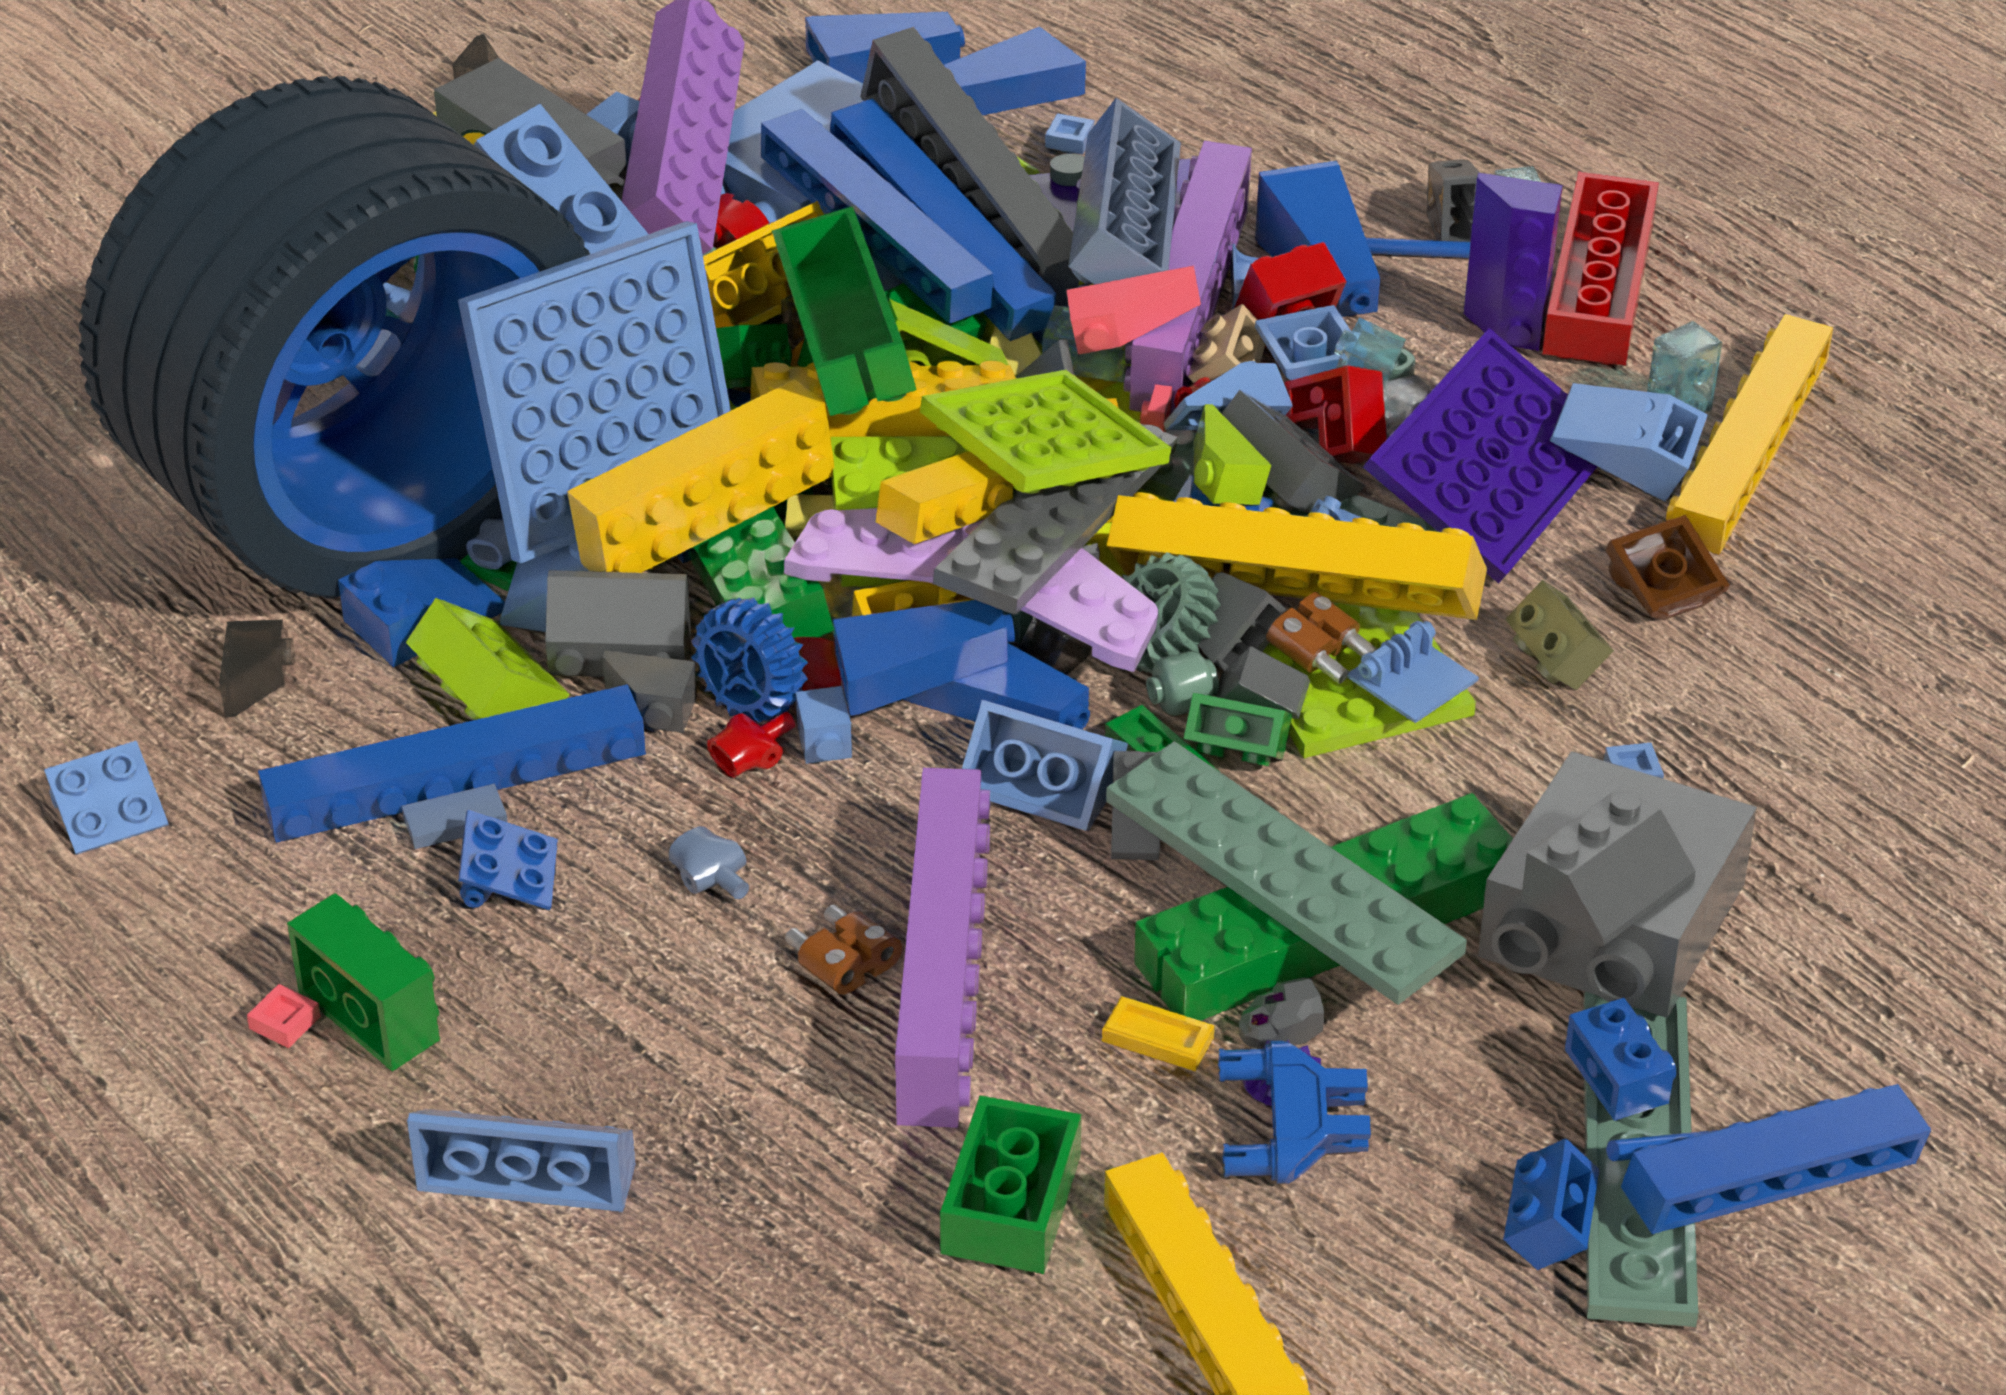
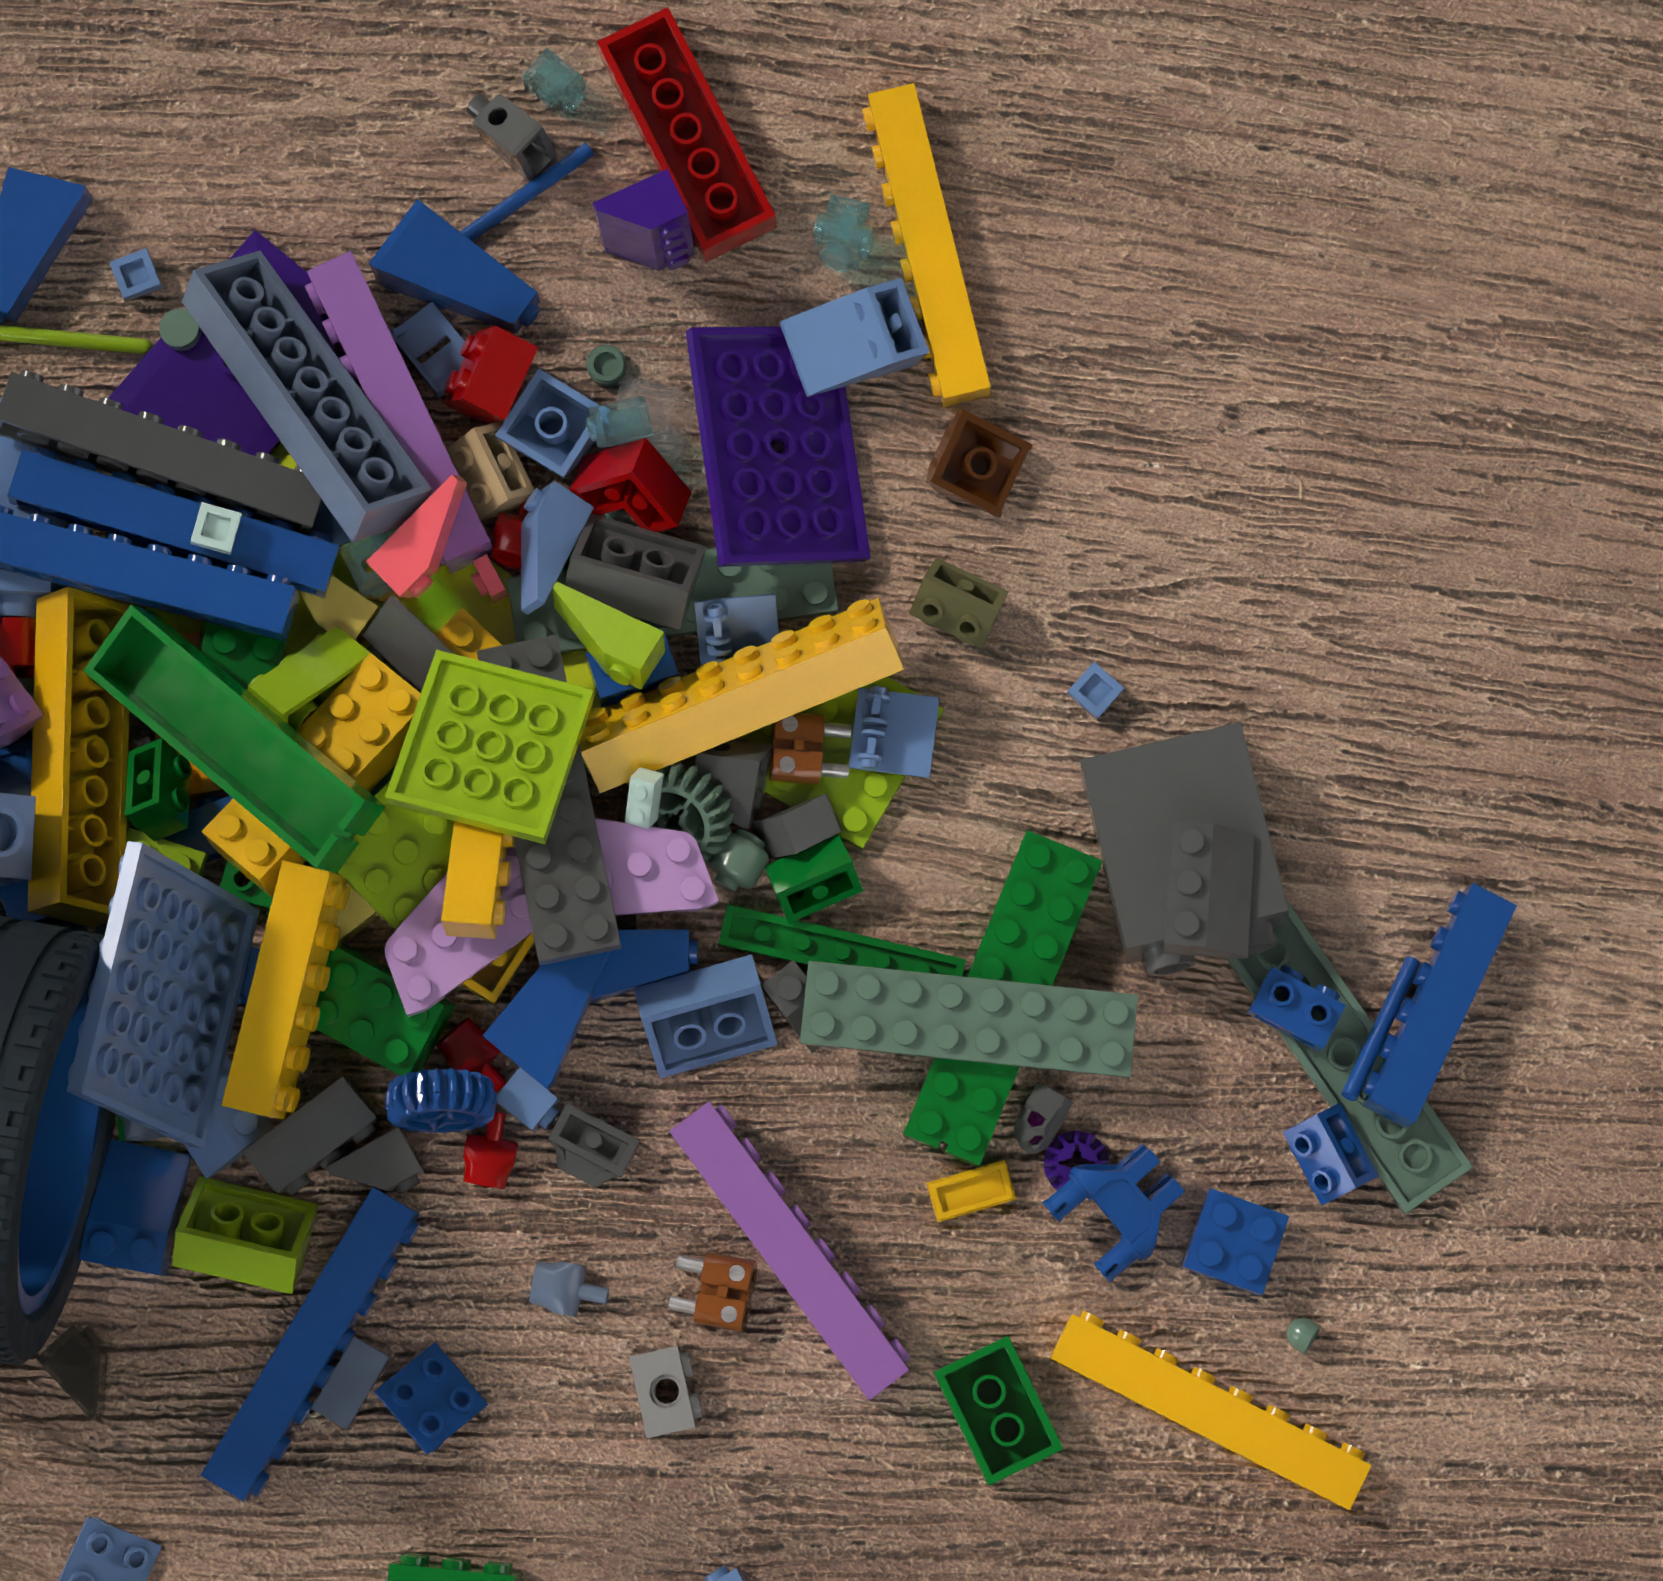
camera: 35 degrees left, 40 degrees up
(714, 982) = (647, 1372): none -> light grey brick
(842, 785) = (590, 1147): none -> dark grey slope
(969, 214) = (216, 528): none -> light aqua plate
(1142, 557) = (644, 798): none -> light aqua piece
(1384, 1215) = (1235, 1242): none -> blue brick
(1386, 1342) = (1302, 1334): none -> sand green hinge

